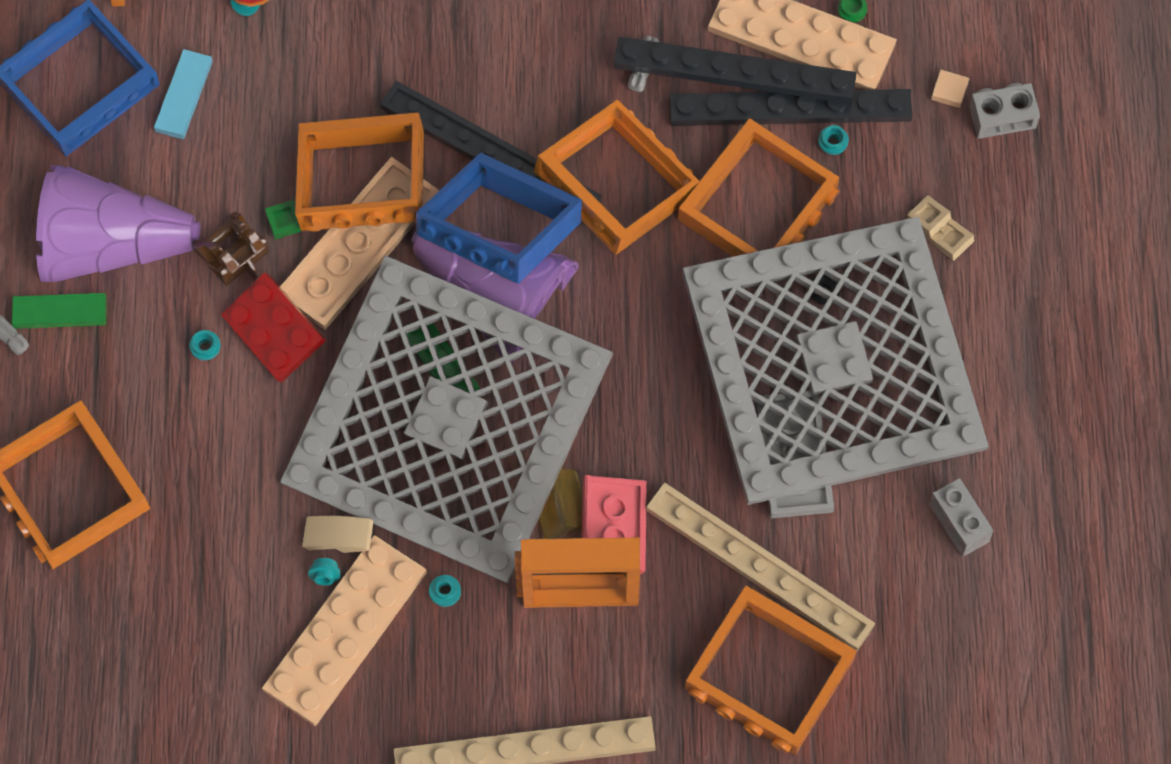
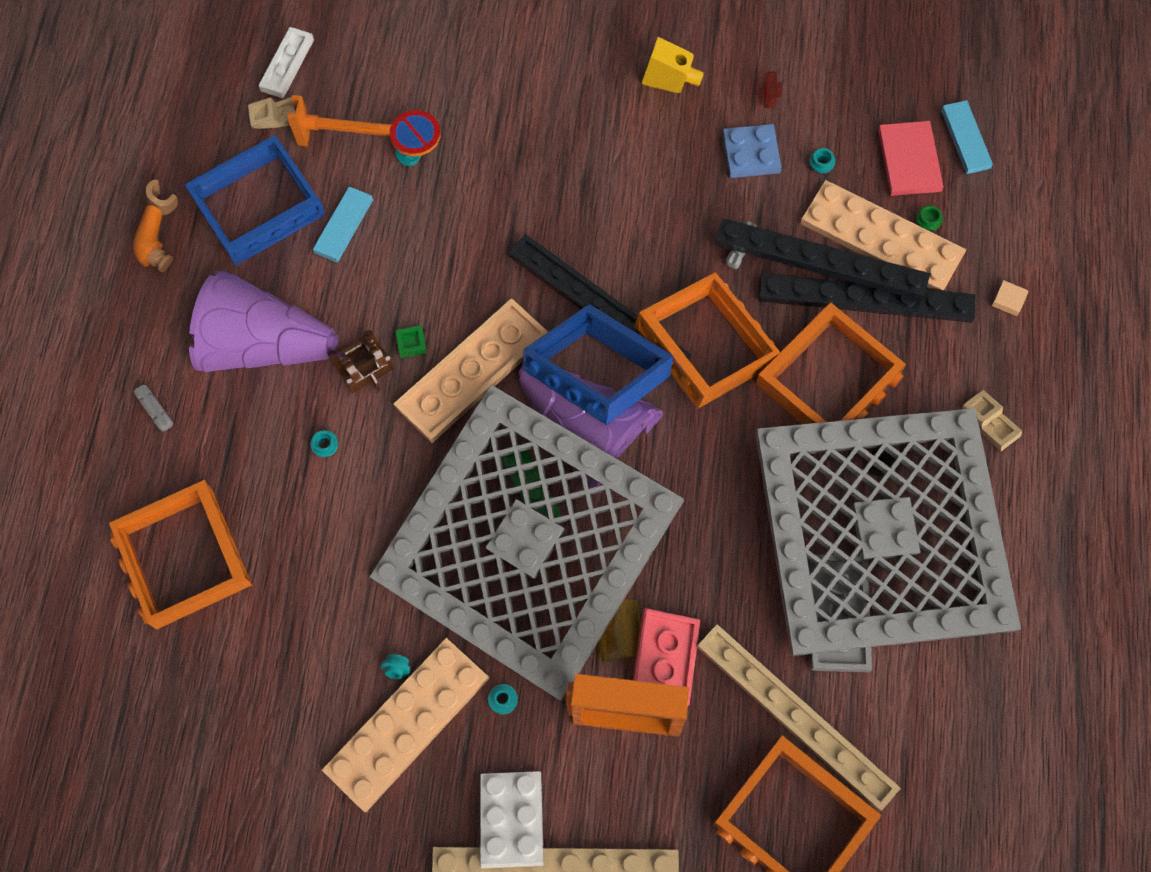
camera: 10 degrees right, 0 degrees up
(59, 310) = (204, 397): green tile -> none
(273, 327) = (386, 435): red plate -> none
(338, 533) = (413, 632): tan slope -> none
(358, 133) = (479, 274): orange window -> none
(472, 709) = (511, 820): none -> white plate
(833, 132) = (904, 324): teal plate -> none
(961, 517) = (991, 695): light grey brick -> none
(1006, 117) = (1060, 327): light grey brick -> none

